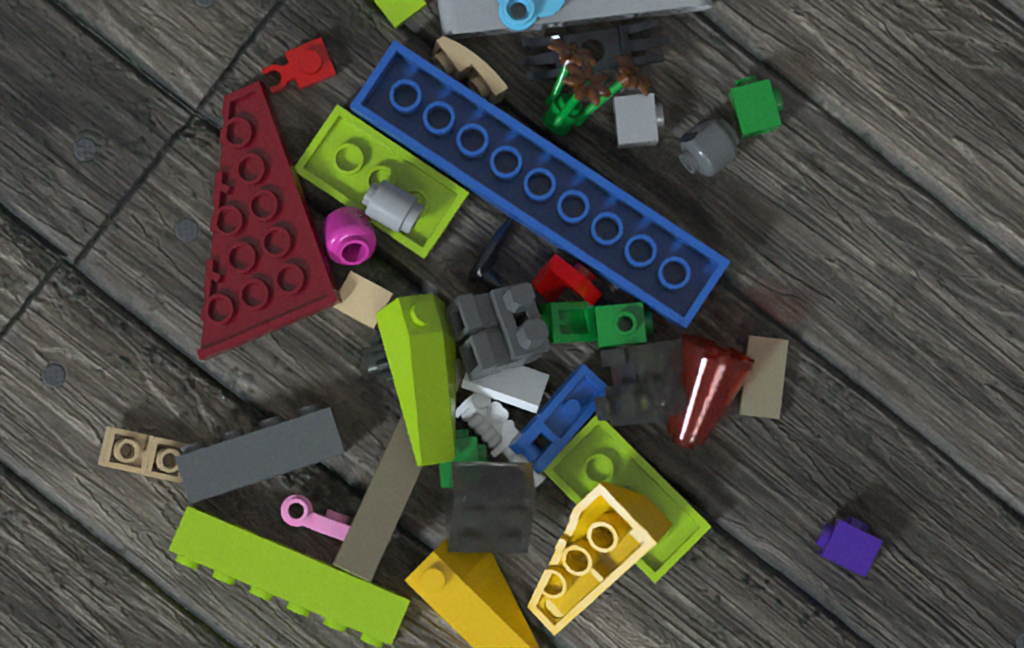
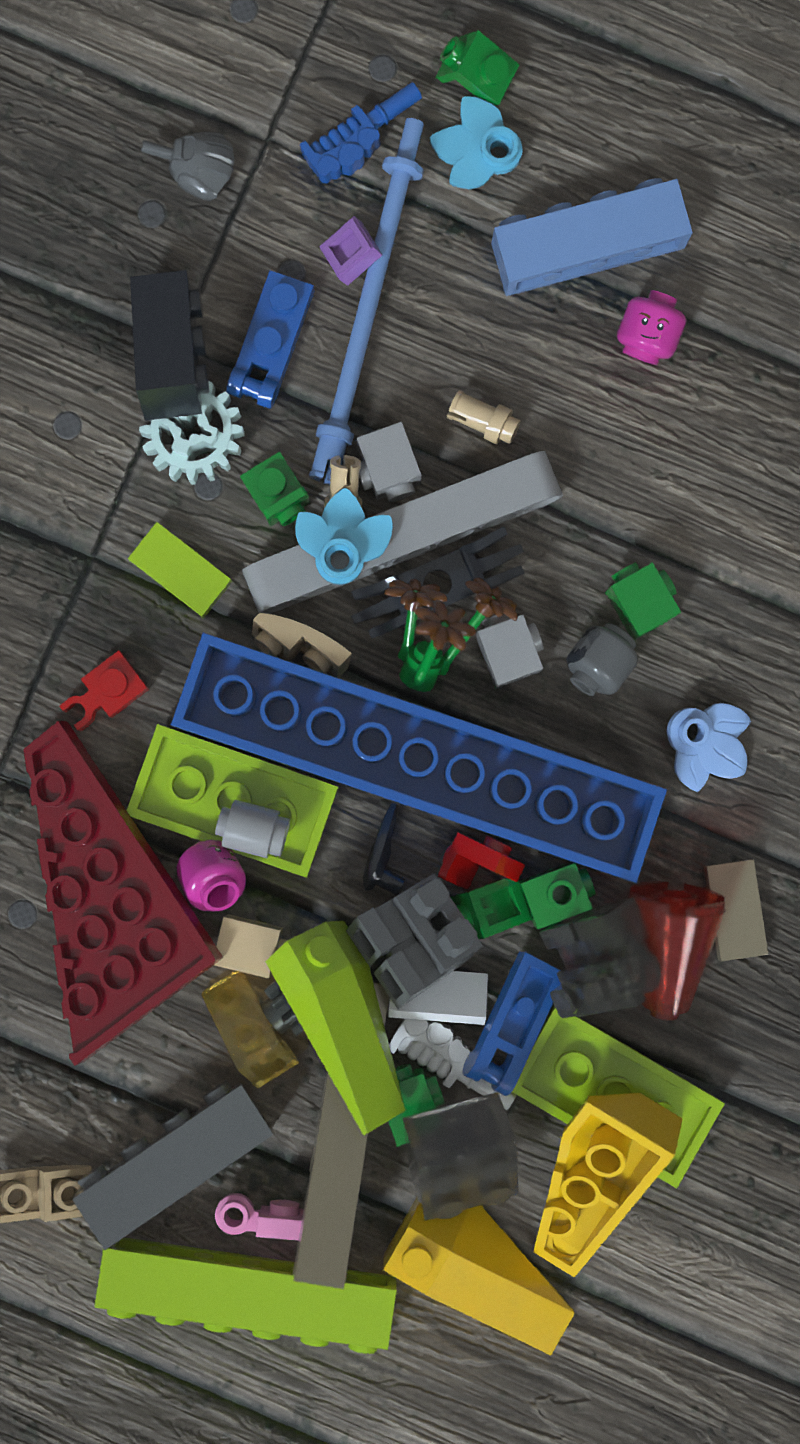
camera: 15 degrees left, 0 degrees up
(345, 368) = (246, 1031): none -> clear yellow bracket
(782, 242) = (715, 746): none -> light blue plate

